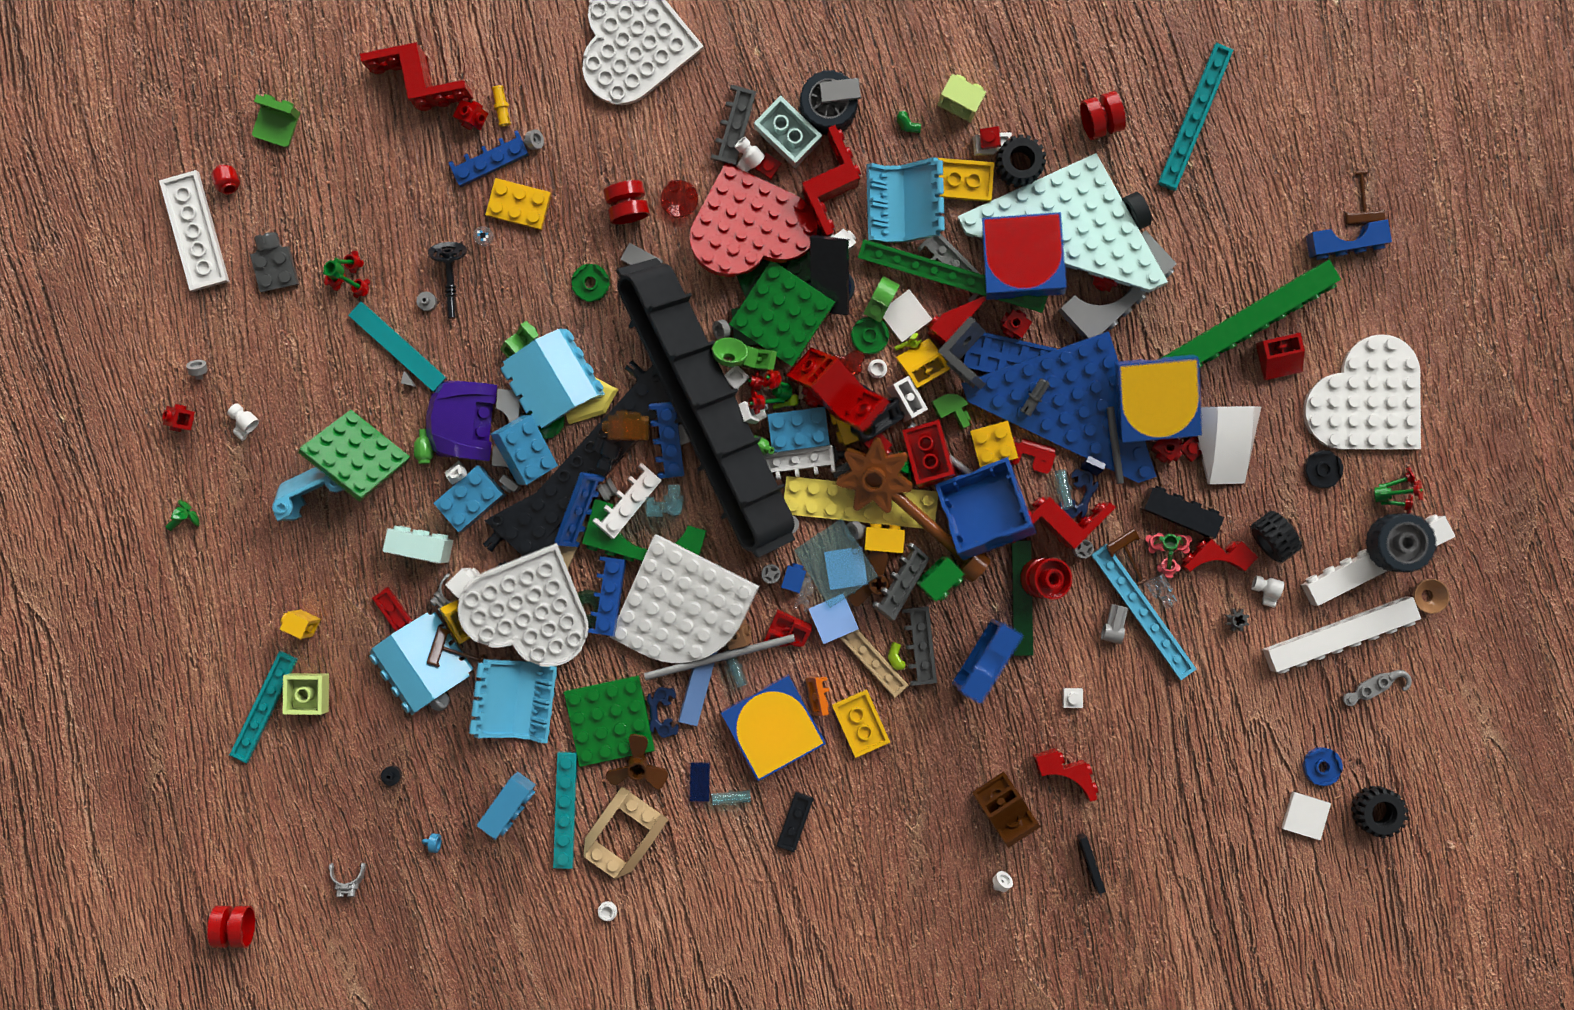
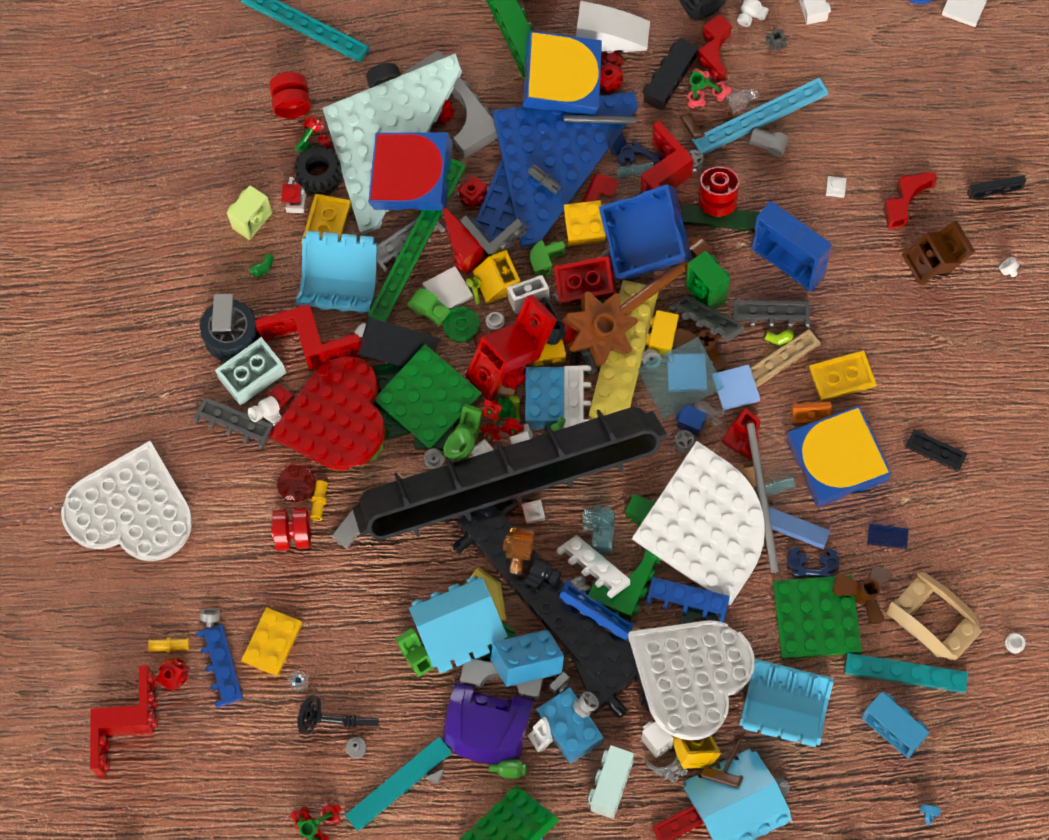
camera: 80 degrees left, 20 degrees down
(483, 511) = (585, 704): none -> light grey wheel
(590, 271) = (368, 591): green tile -> none
(664, 224) = (319, 500): none -> yellow pin
(668, 439) = (537, 517): blue hinge -> none
(731, 797) = (906, 506): clear light blue pin -> none
(1067, 148) = (313, 124): none -> red plant

